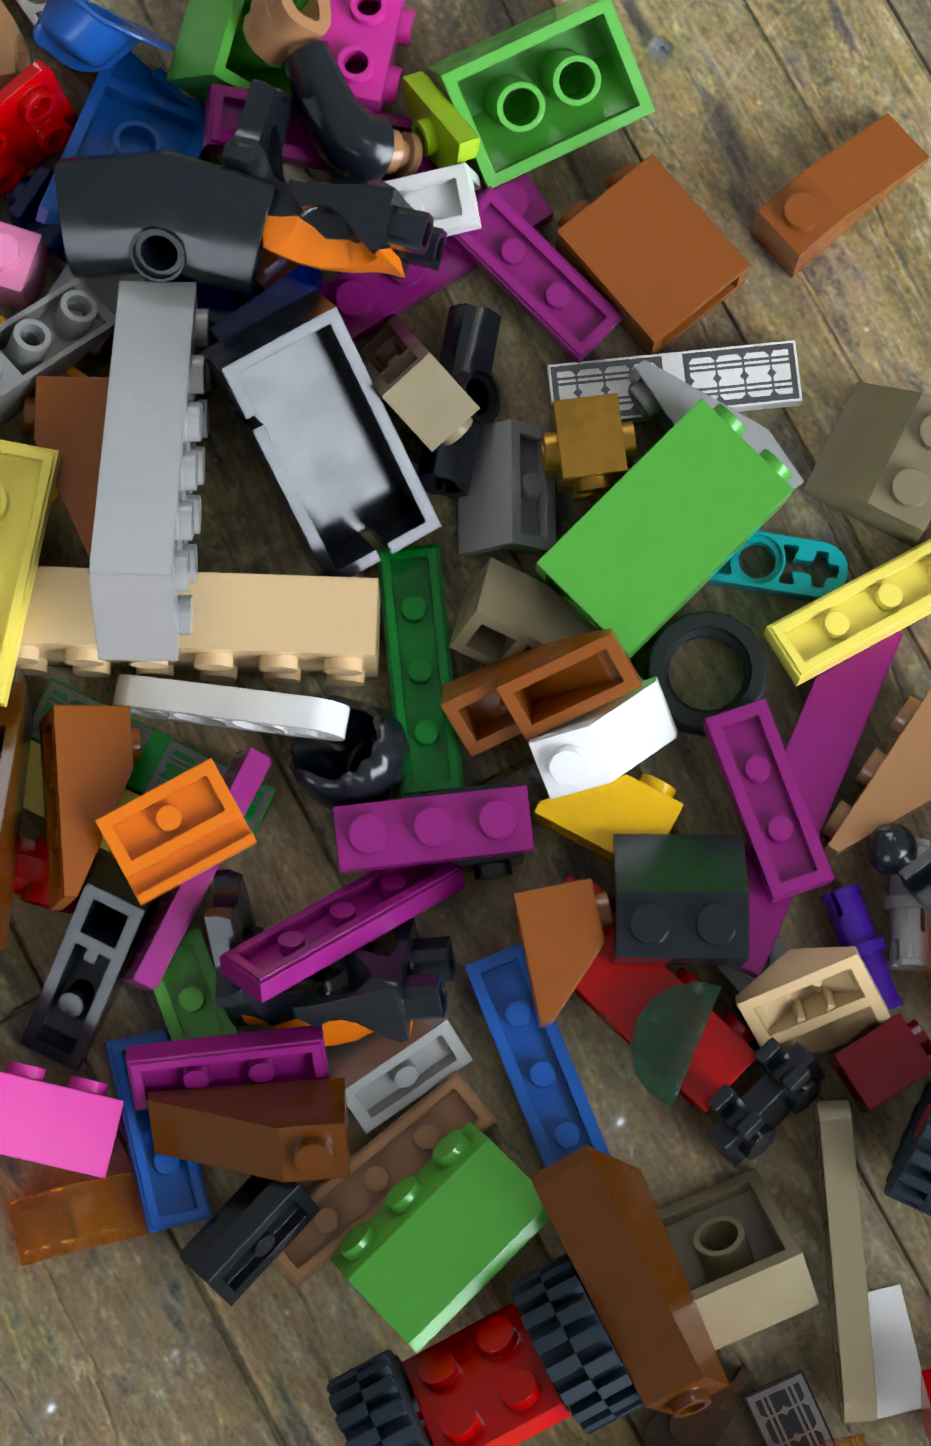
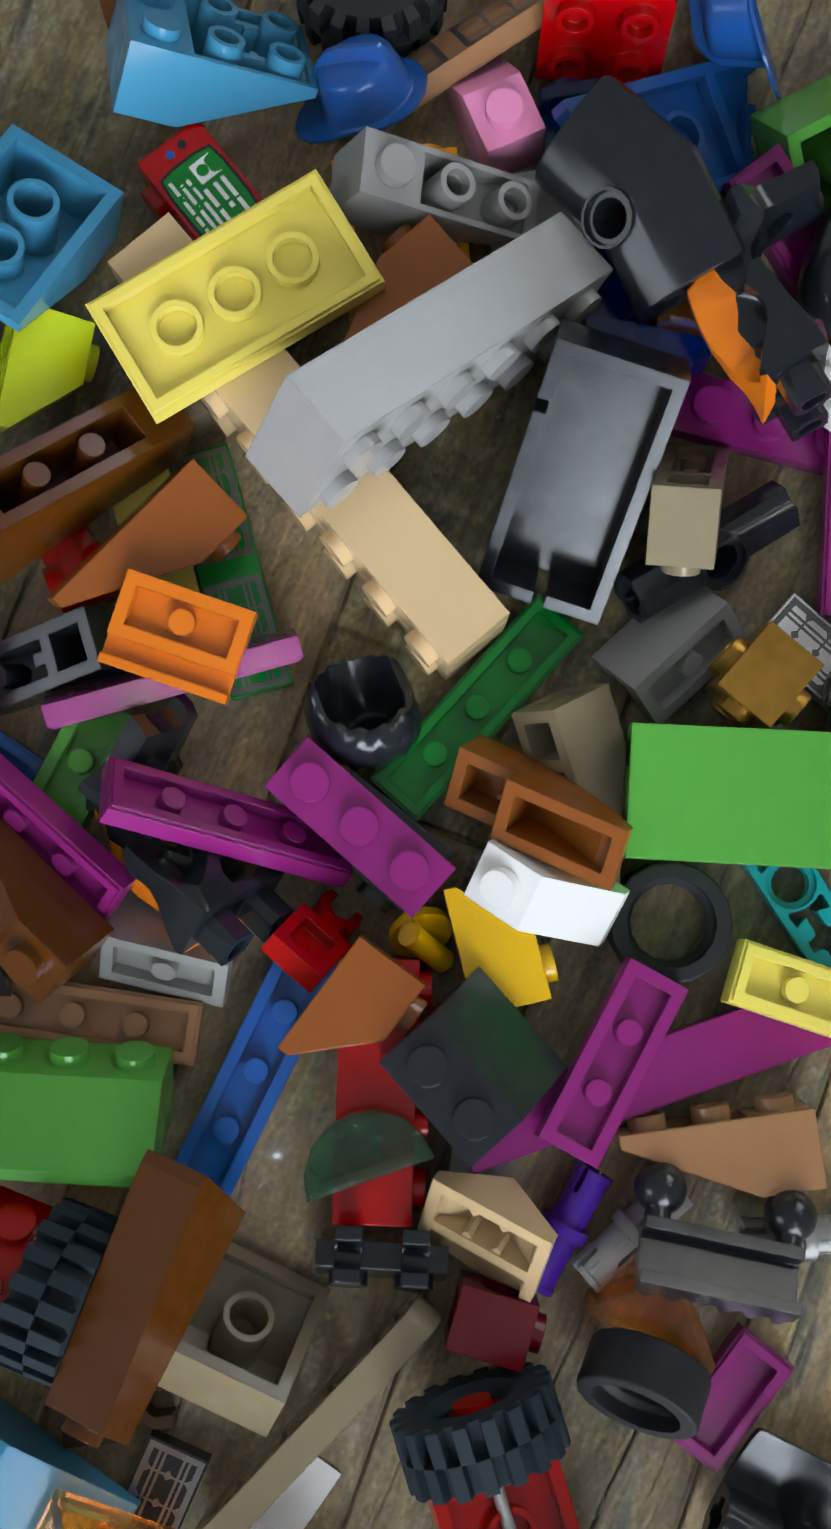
camera: 50 degrees right, 5 degrees up
(232, 707) = (320, 595): white beam -> none
(485, 942) = (311, 941): none -> red plate
(555, 860) = (424, 937): none -> yellow plate

